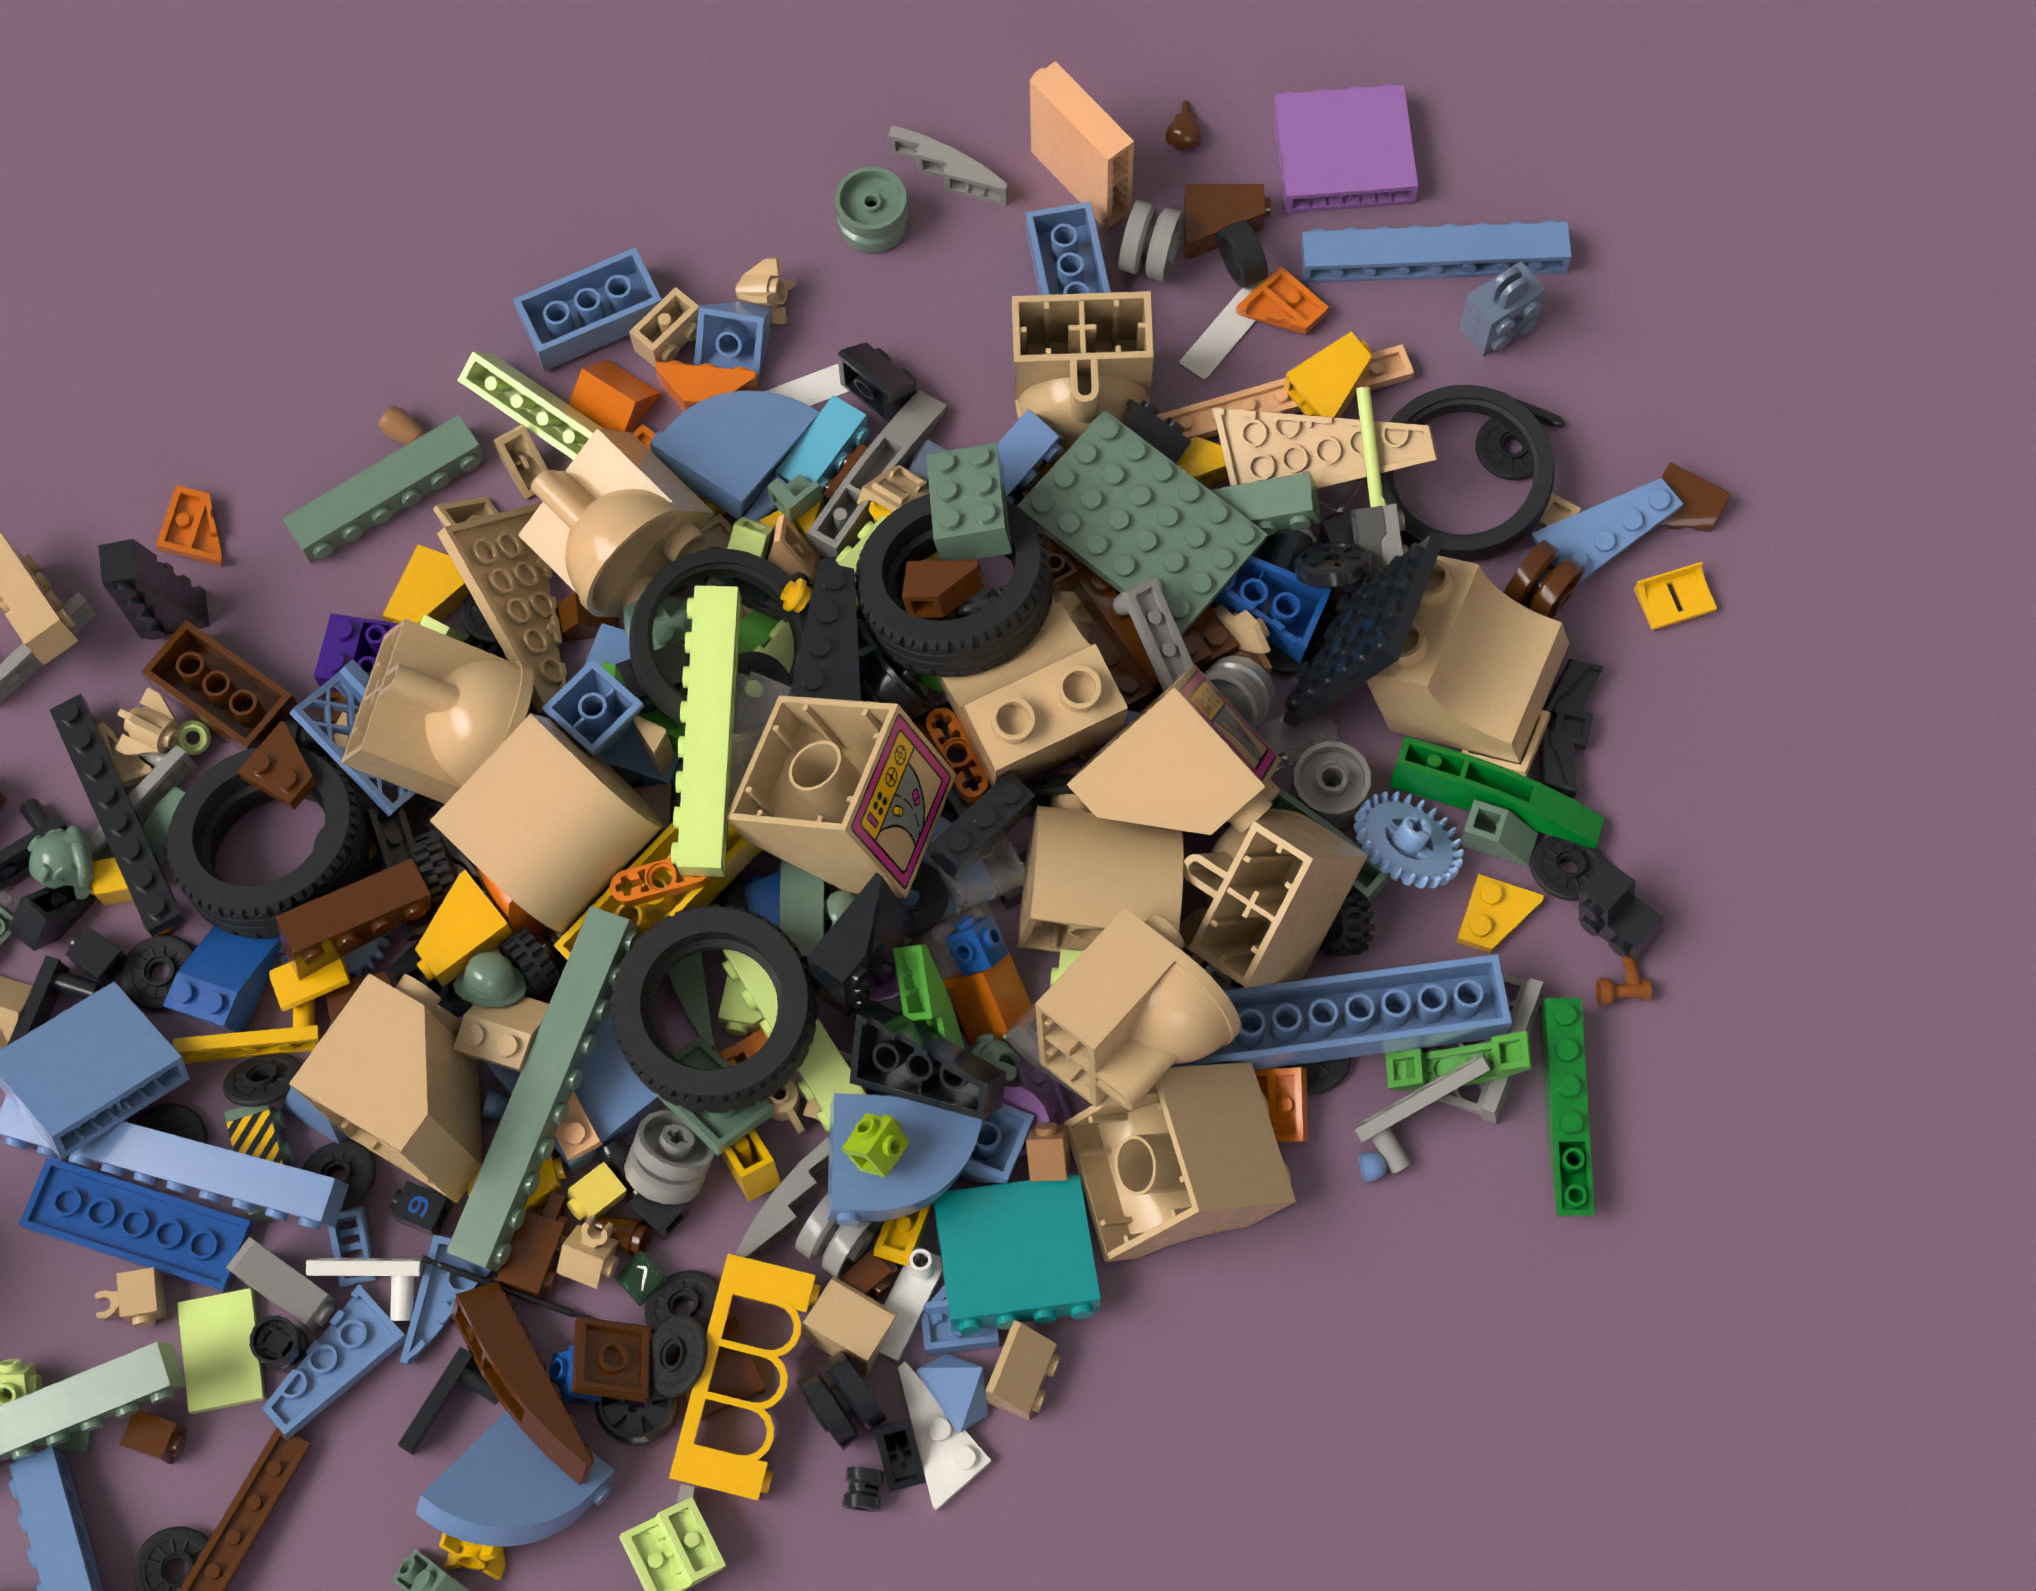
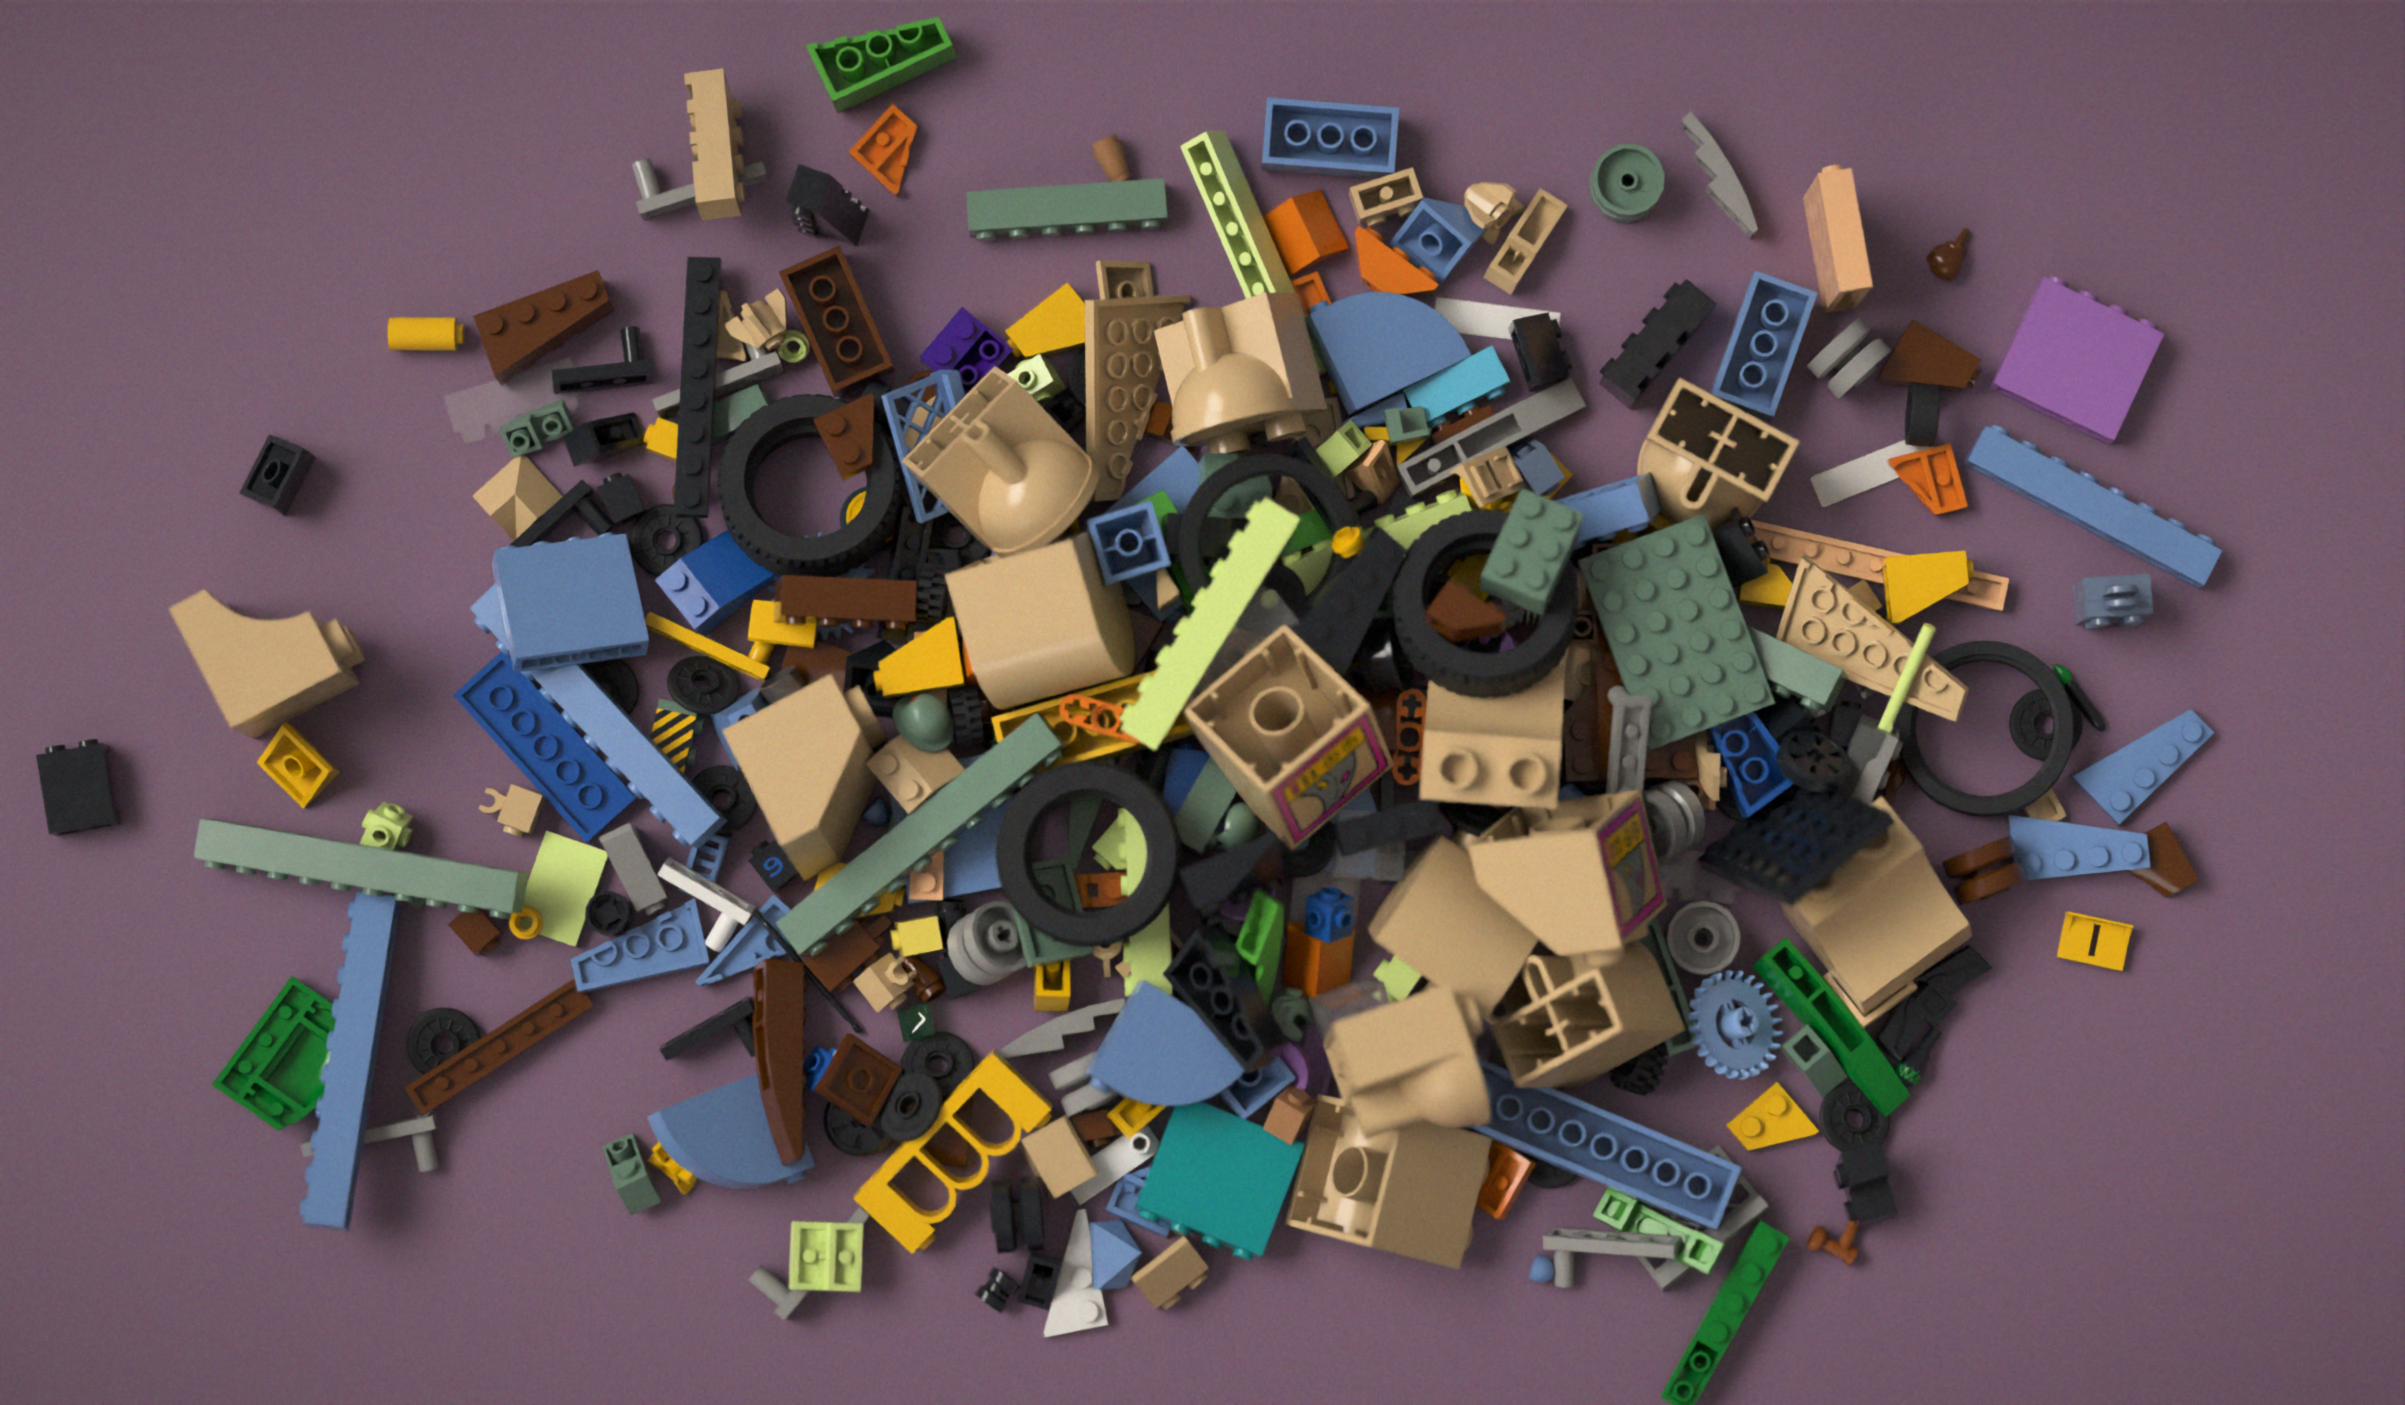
camera: 25 degrees right, 15 degrees up
(63, 860) = (635, 404): sand green helmet -> none
(145, 455) = (879, 60): none -> bright green wedge
(190, 1395) = (534, 930): none -> yellow plate
(520, 458) = (1197, 253): tan slope -> none
(812, 305) = (1525, 241): none -> tan slope
(876, 1144) = (1152, 1045): lime brick -> none
(976, 322) = (1656, 343): none -> black wedge
(1590, 789) = (1913, 1066): none -> black piece
(1616, 438) = (2138, 769): none -> medium blue wing

